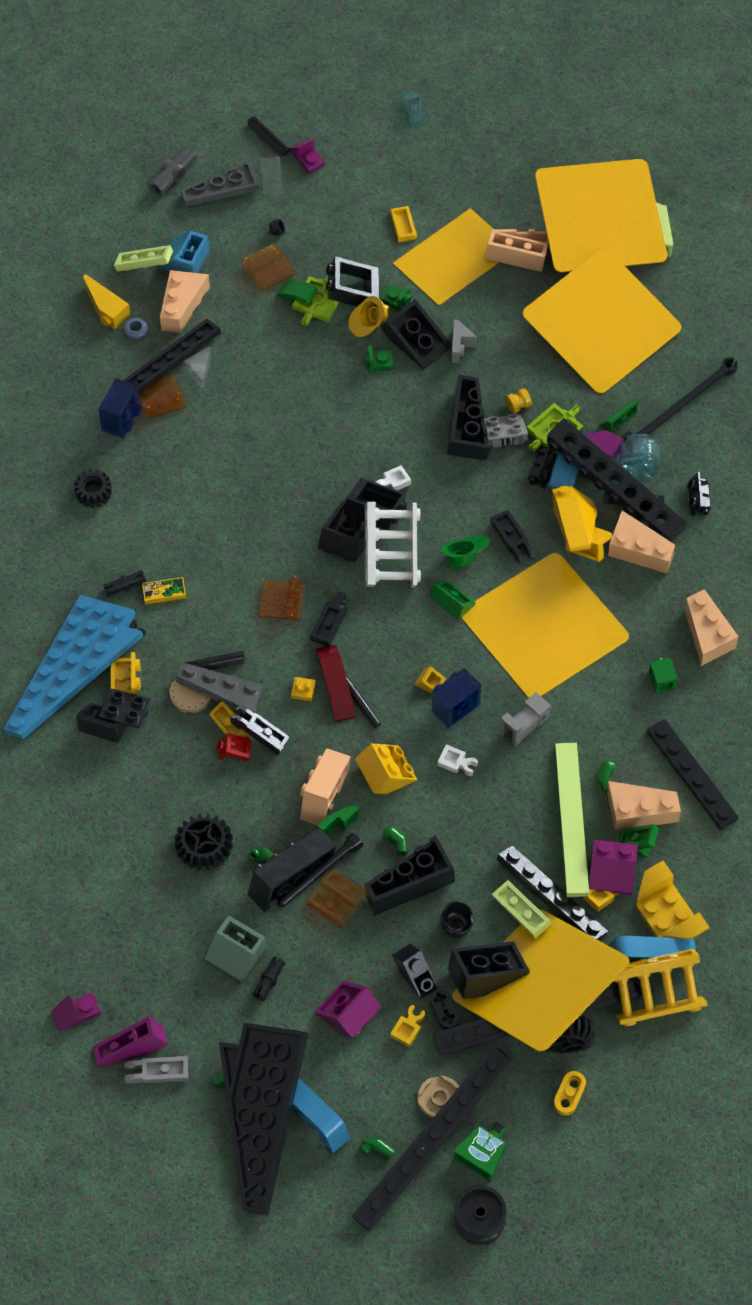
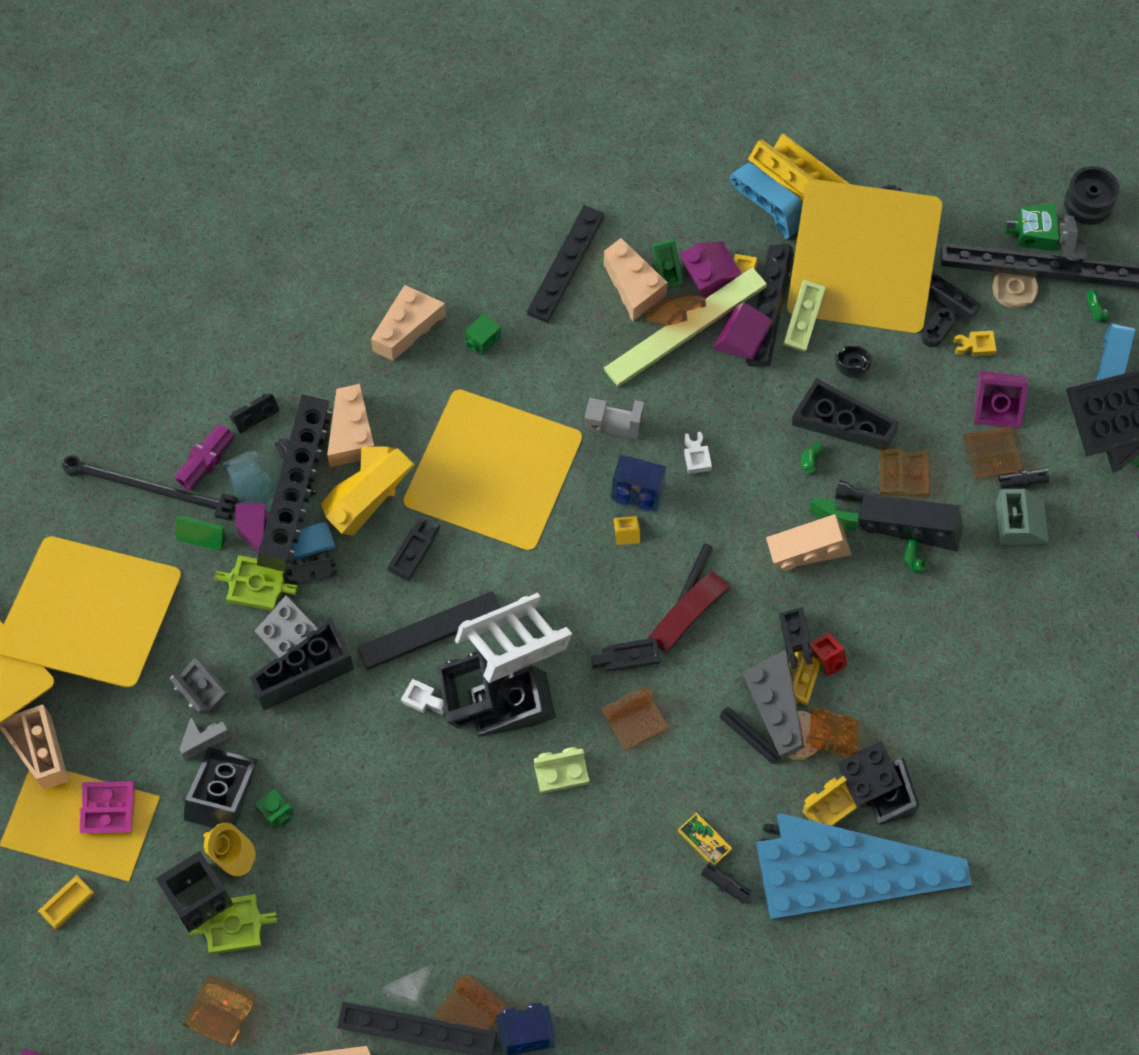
camera: 125 degrees left, 5 degrees up
(93, 478) = (637, 981): black tyre -> none
(174, 711) = (835, 730): none -> clear orange hinge
(217, 850) = (924, 620): black gear -> none
(277, 227) = (154, 1038): black hinge -> none
(277, 533) = (561, 770): none -> yellowish green bracket
(297, 290) = (238, 952): green slope -> none
(303, 689) = (718, 635): yellow tile -> none
(308, 974) = (992, 452): none -> clear orange slope
(385, 768) = (751, 506): yellow slope -> none
(396, 297) = (178, 842): green bracket -> none
(415, 970) = (923, 367): black slope -> none
(442, 514) = (425, 631): none -> black tile
(445, 1162) = (1072, 247): none -> dark grey bracket
(451, 271) = (107, 807): none -> dark pink slope
(451, 599) = (523, 563): green slope -> none
(464, 551) = (463, 575): green piece -> none
(486, 968) = (881, 307): black slope -> none
(498, 356) = (200, 687): none -> dark grey bracket
(518, 401) = (244, 635): yellow wheel -> none
(535, 852) = (743, 332): none -> magenta slope
(569, 1094) = (937, 190): yellow plate -> none
(590, 814) = (675, 309): none -> clear orange slope
(604, 772) = (618, 330): green arm -> none
(665, 908) = (719, 205): yellow piece -> none
(680, 445) = (204, 457): none -> magenta piece

